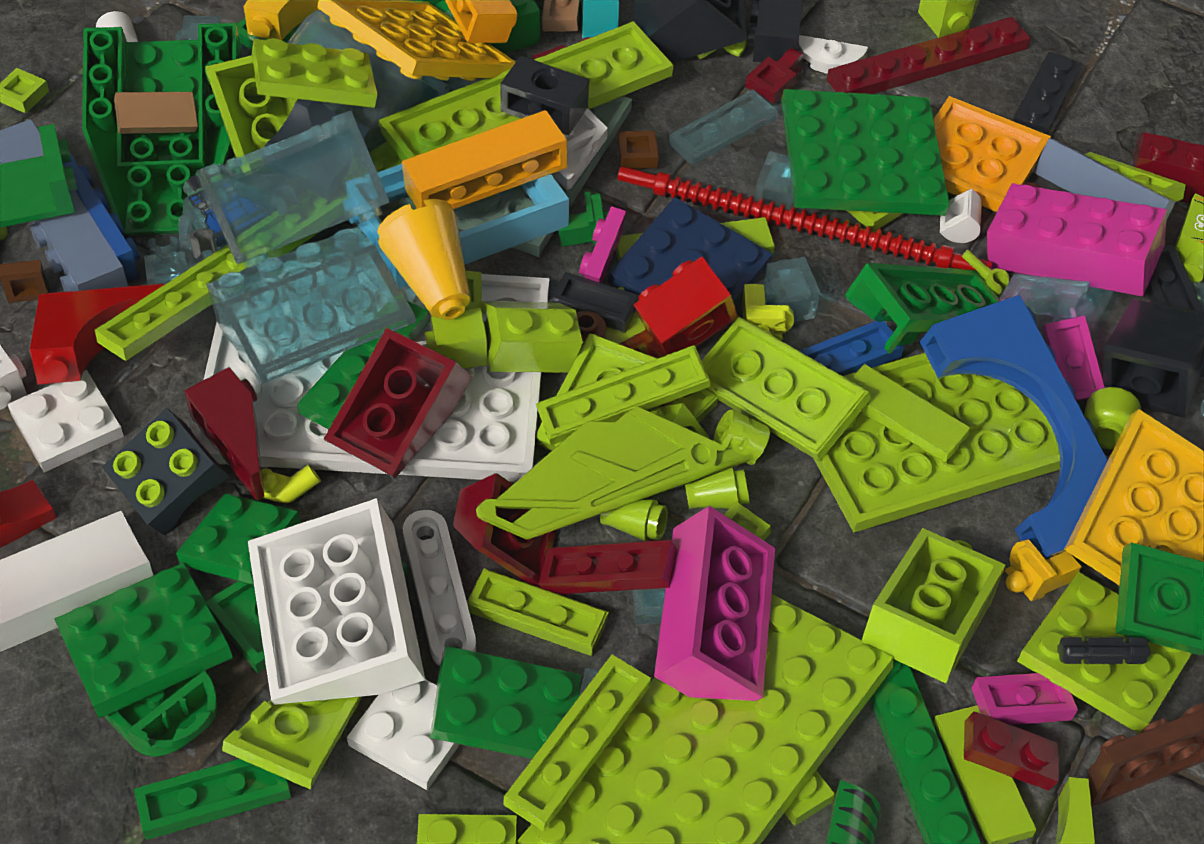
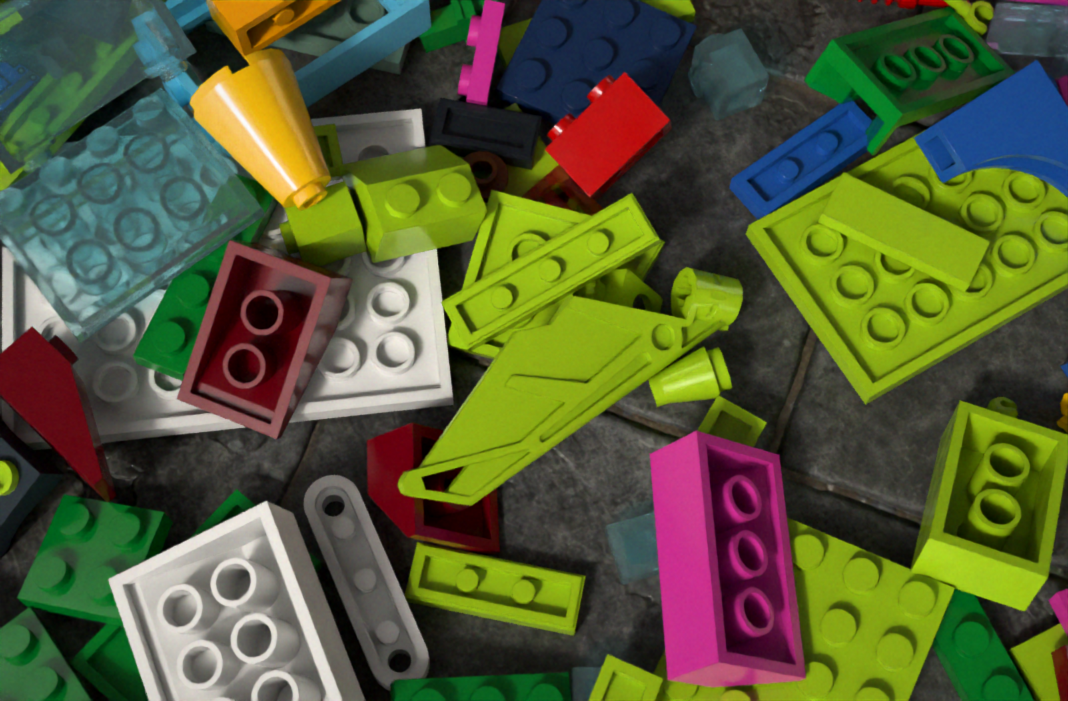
camera: 10 degrees left, 15 degrees up
(288, 489) = (143, 470): neon yellow arm -> none
(608, 567) = (577, 522): dark red plate -> none
(639, 519) = (604, 438): lime cone -> none
(769, 318) = (697, 124): neon yellow piece -> none
(782, 388) = (745, 222): lime tile -> none

